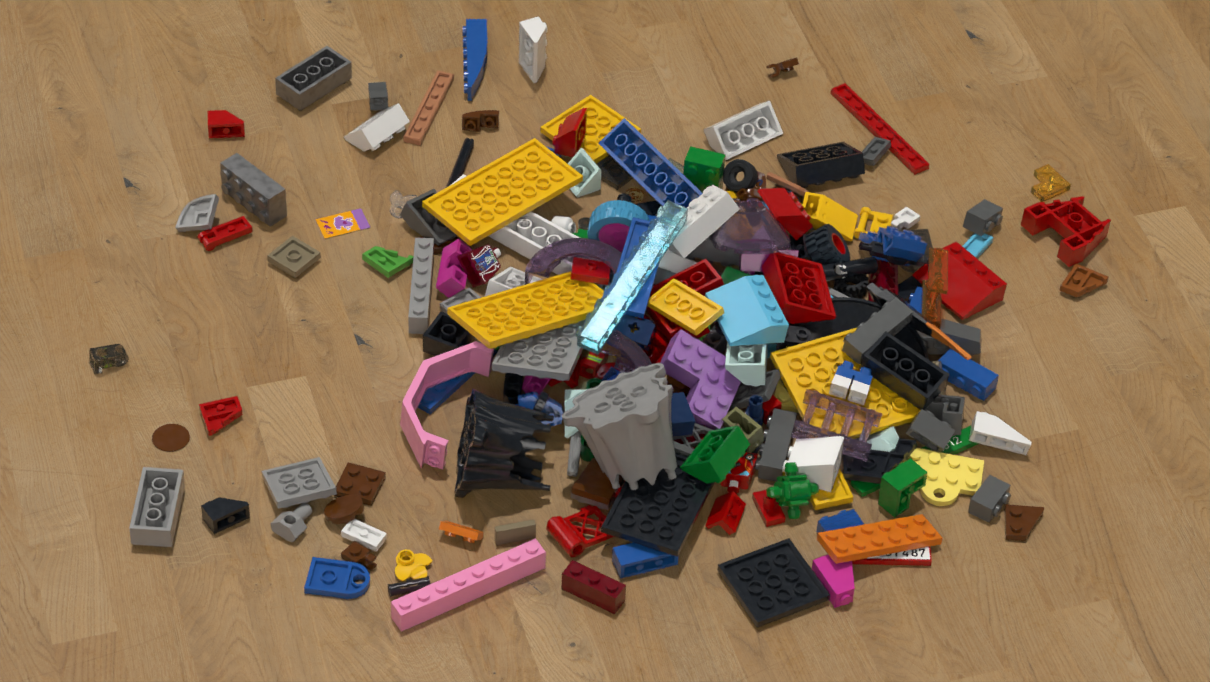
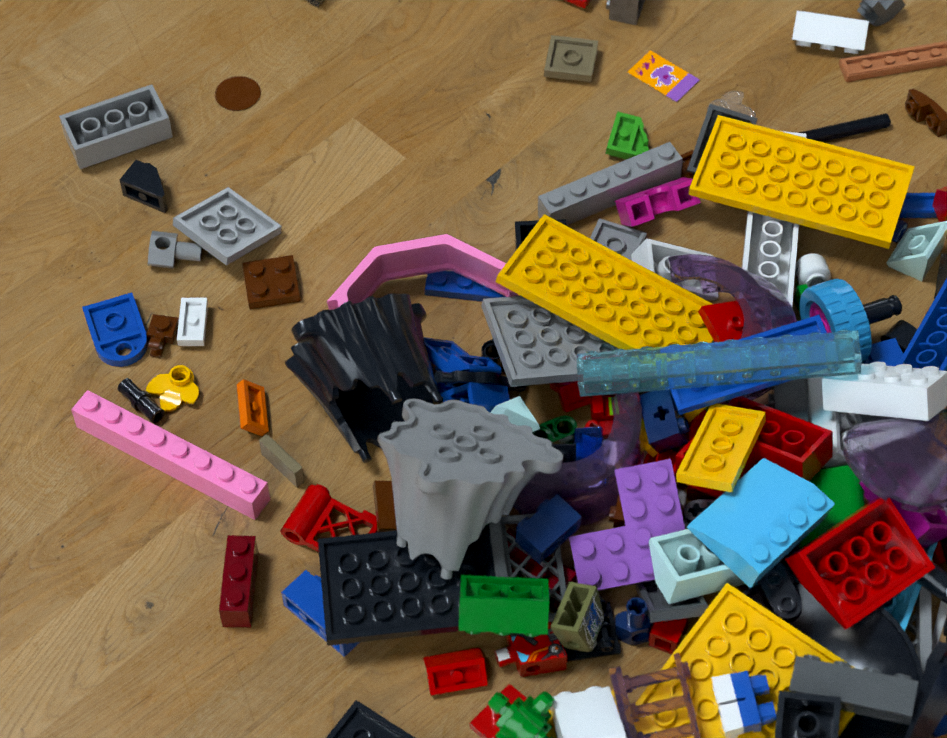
camera: 65 degrees right, 10 degrees up
(220, 413) = (291, 113): red wing -> none
(344, 509) = (217, 284): reddish brown tile -> none
(480, 264) = (683, 221): dark red torso -> none
(776, 445) = (594, 668): dark grey brick -> none

